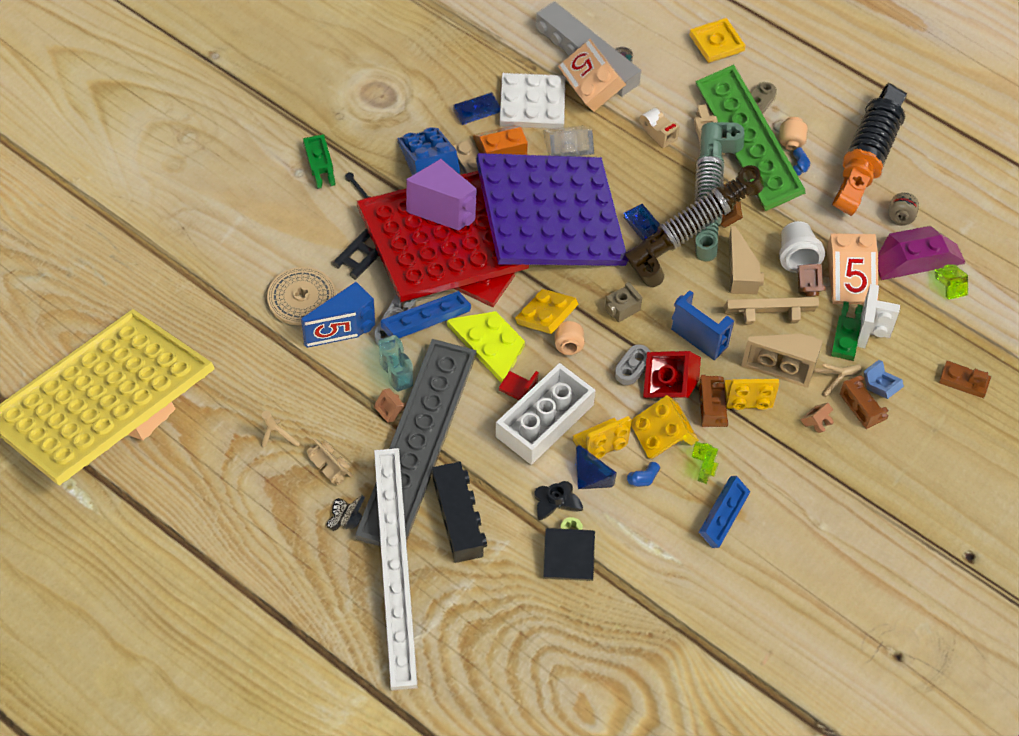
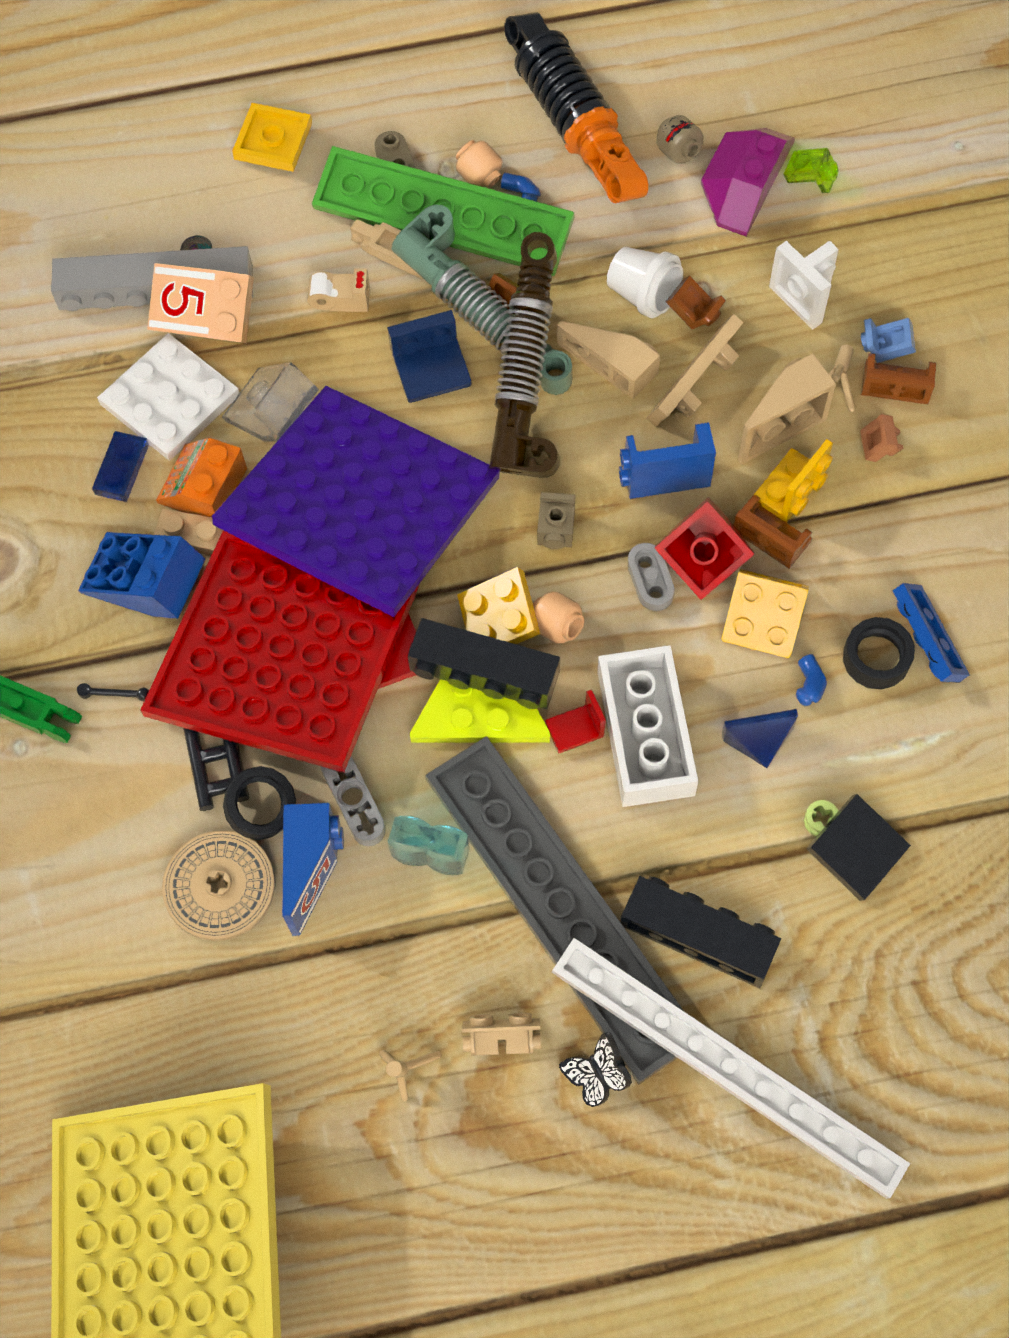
camera: 45 degrees left, 10 degrees up
(355, 263) = (253, 775): none -> black tyre
(389, 405) = (479, 899): nougat tile -> none
(426, 315) = (386, 758): blue plate -> none
(441, 196) = (242, 604): medium lavender slope -> none
(510, 320) = (484, 664): none -> black brick
(555, 497) = (764, 803): black animal -> none
(605, 436) = (727, 687): yellow bracket -> none
(641, 221) = (464, 413): clear blue plate -> none
(660, 187) = (428, 356): none -> dark blue bracket
(692, 479) = (889, 630): none -> black tyre
(707, 454) = (855, 601): clear neon green bracket -> none
(847, 333) = (789, 321): green hinge -> none
(852, 266) = (716, 250): light nougat slope -> none
(965, 379) = (945, 258): dark orange hinge -> none

